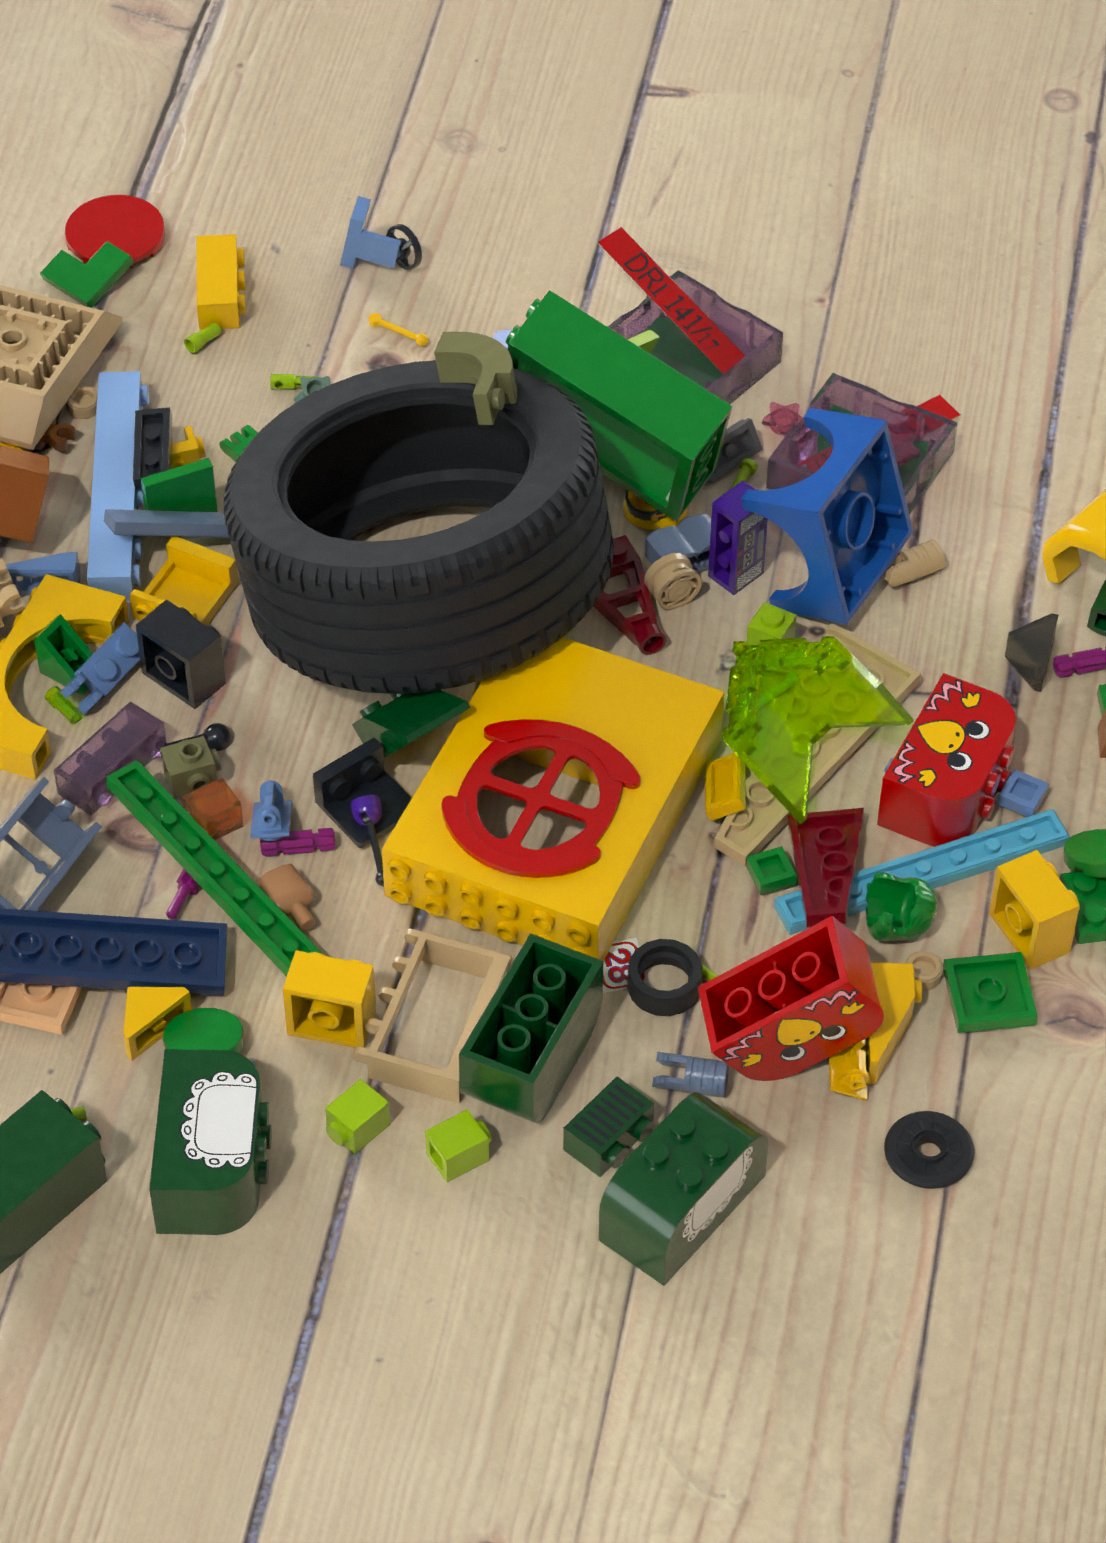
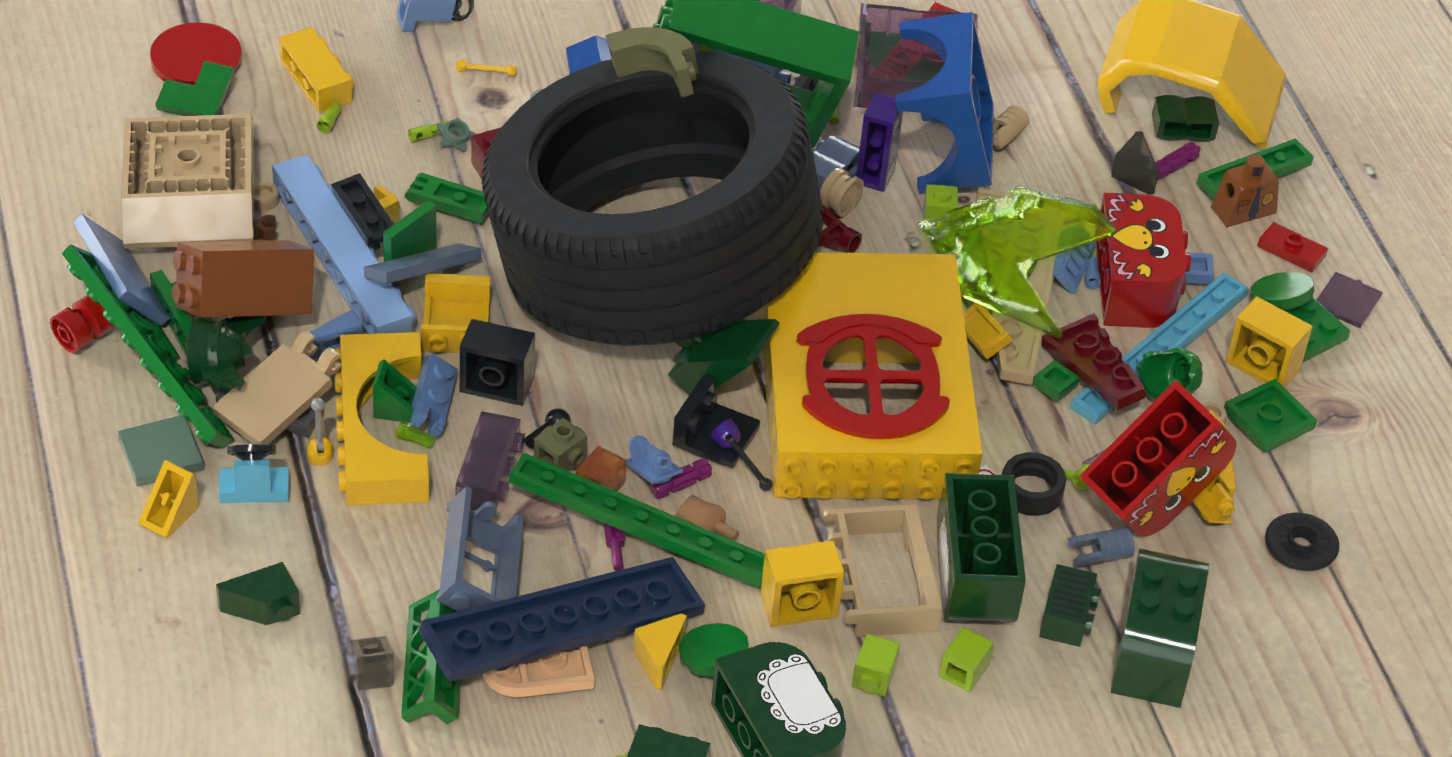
camera: 30 degrees left, 5 degrees down
(881, 754) = (1076, 262): none -> medium blue slope

